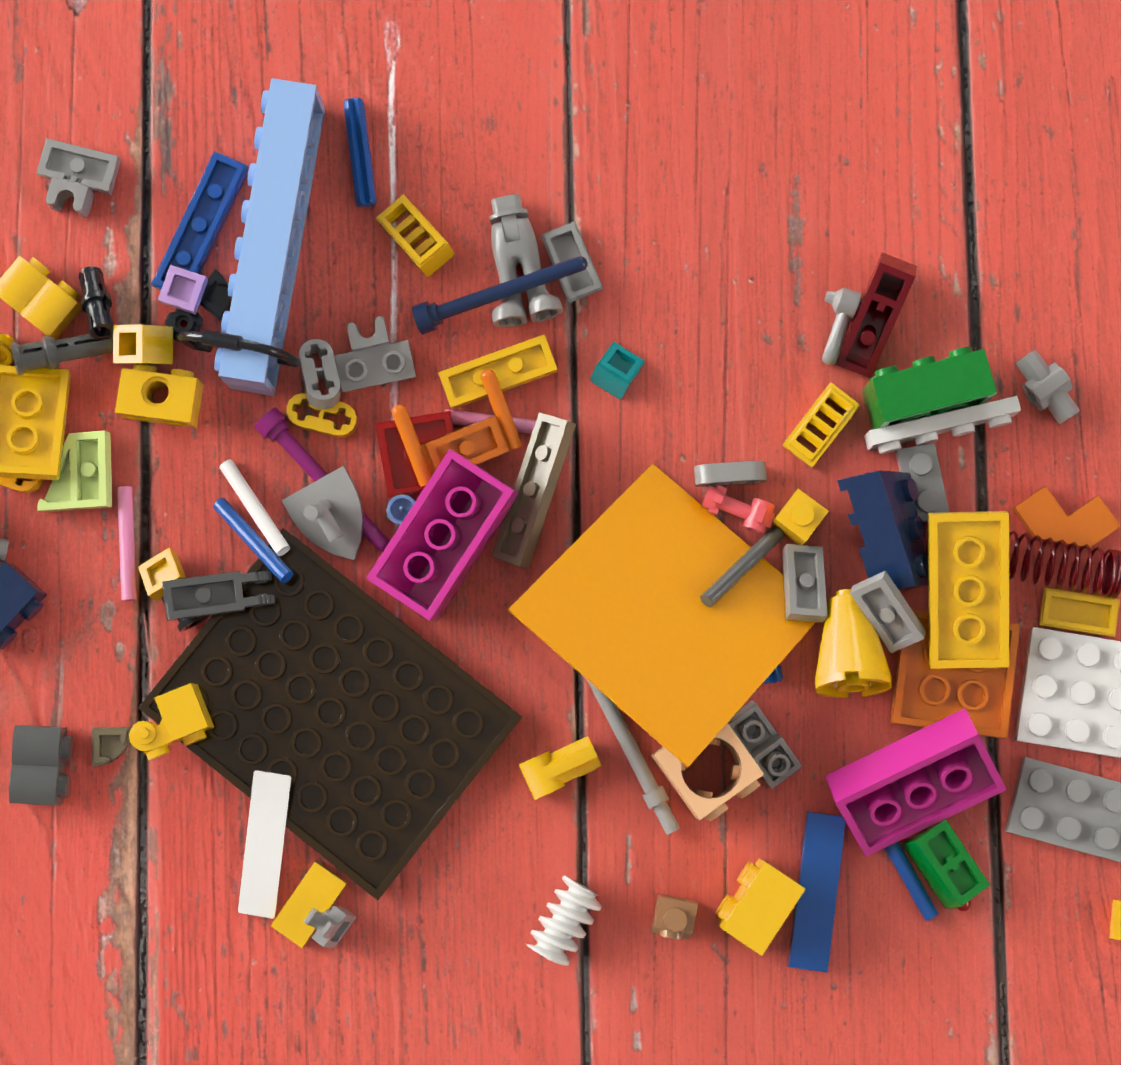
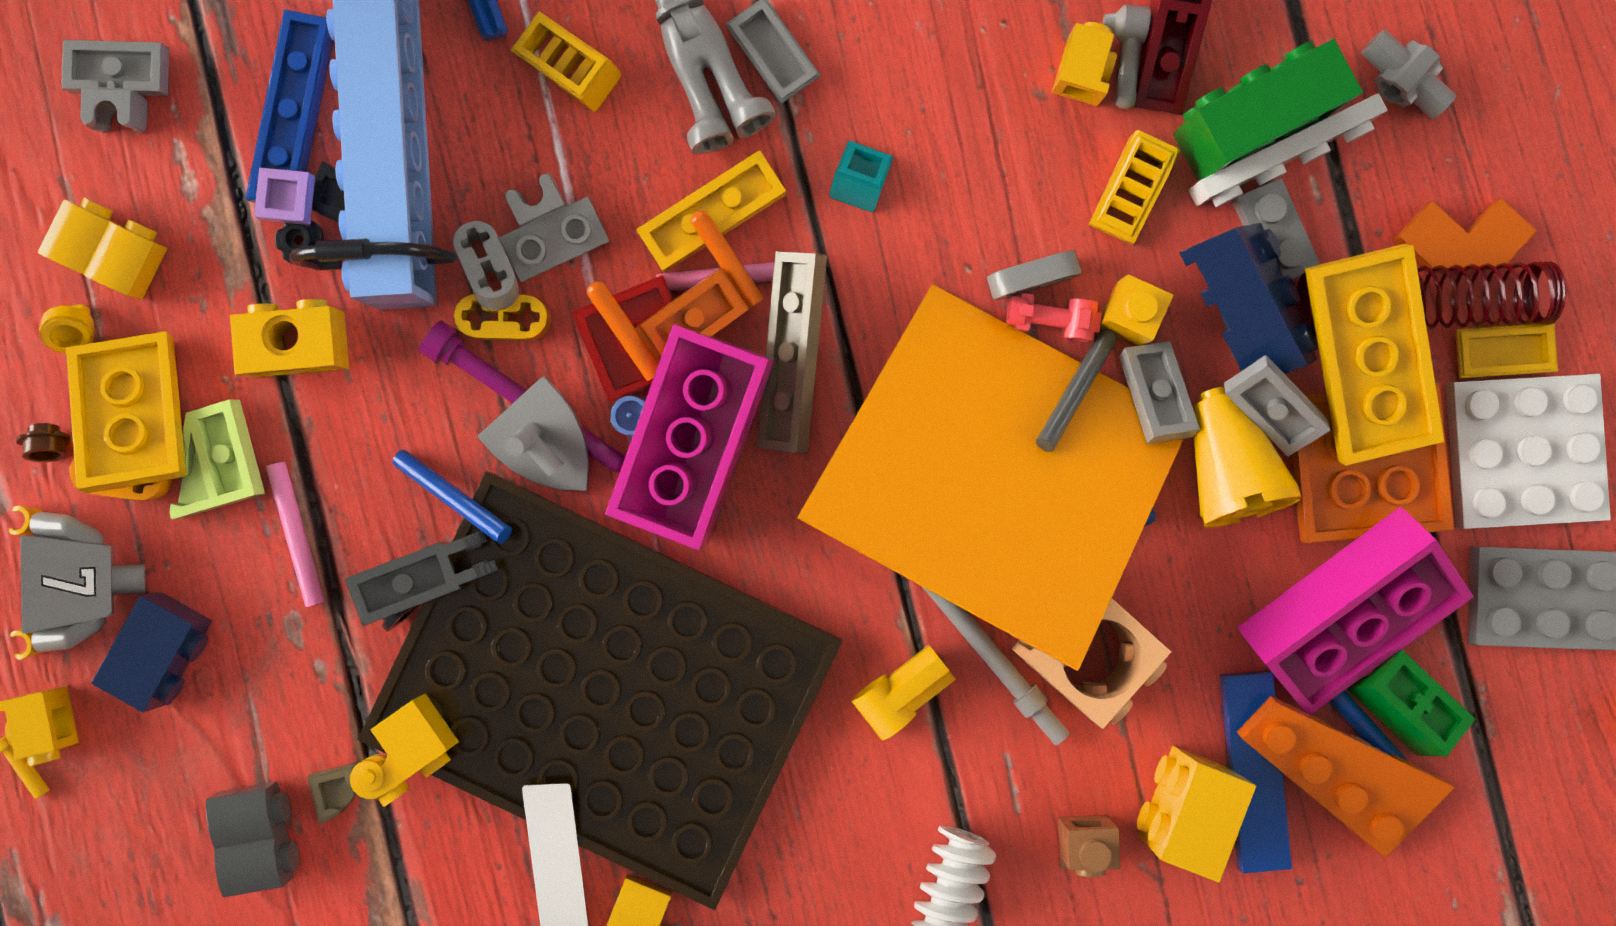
camera: 15 degrees left, 5 degrees up
(52, 352) = (138, 314): dark grey pin -> none
(96, 303) = (178, 238): black pin -> none
(143, 344) = (250, 278): yellow brick -> none
(160, 568) = (345, 558): yellow plate -> none
(254, 507) = (444, 454): white bar -> none
(431, 315) = (610, 158): dark blue piece -> none
(764, 744) = (1156, 607): light grey slope -> none
(805, 323) = (1086, 63): none -> yellow brick
(891, 915) = (1356, 782): none -> orange wing

